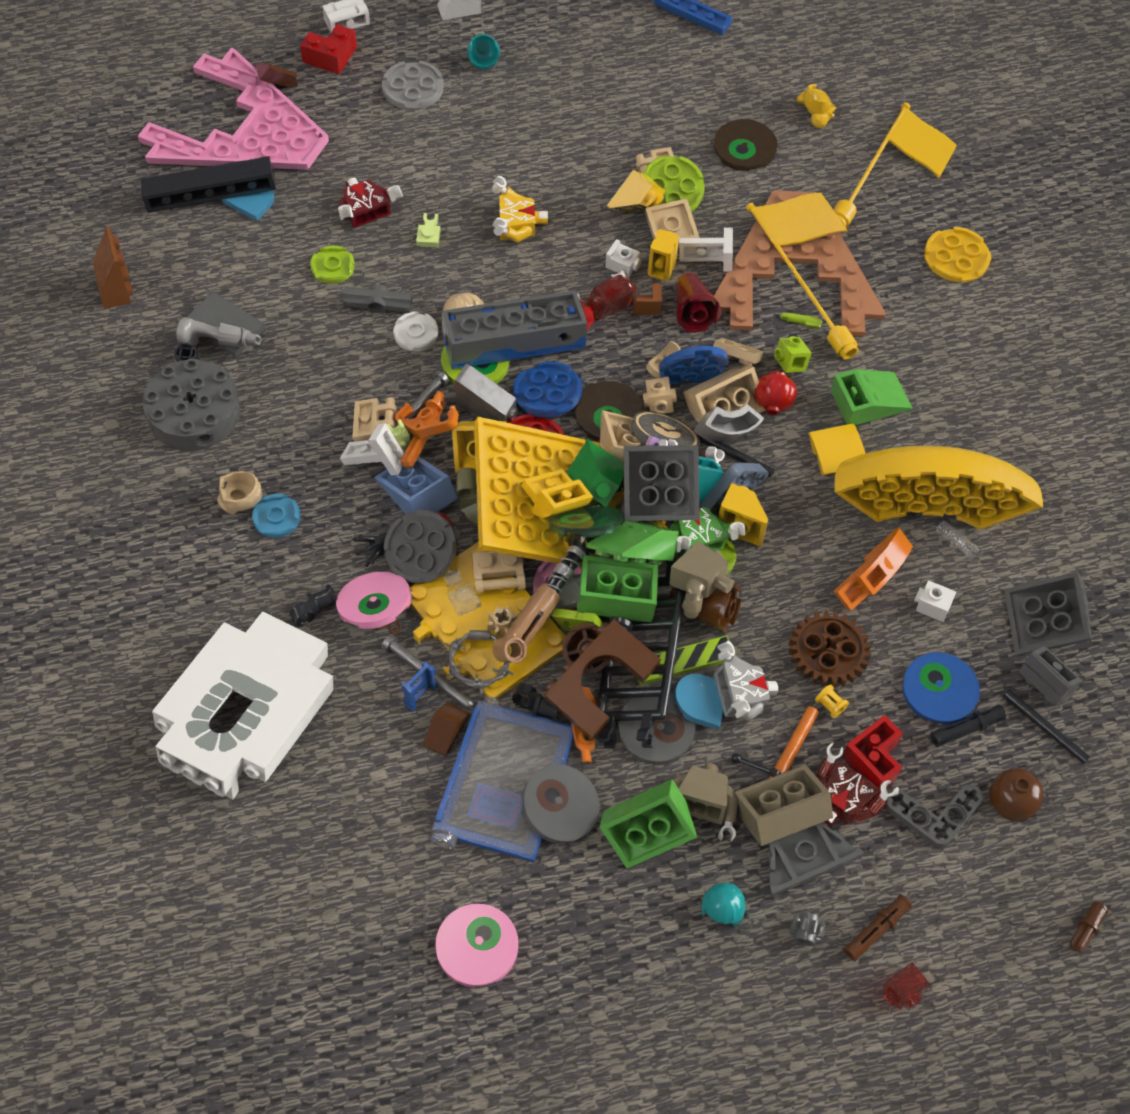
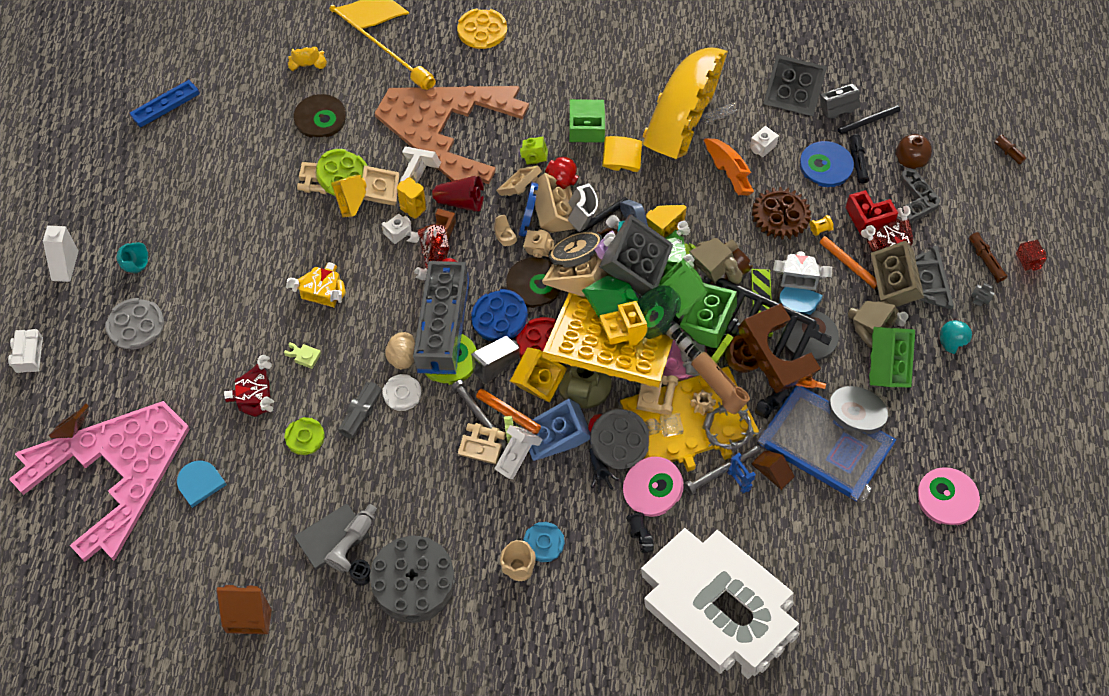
camera: 70 degrees left, 0 degrees up
(208, 184) = (174, 510): black brick -> none
(329, 52) = (66, 374): red brick -> none
(427, 420) = (505, 402): orange piece -> none
(736, 758) = (846, 295): black hinge -> none
(798, 222) = (419, 104): yellow flag -> none
(808, 321) = (503, 133): lime piece -> none

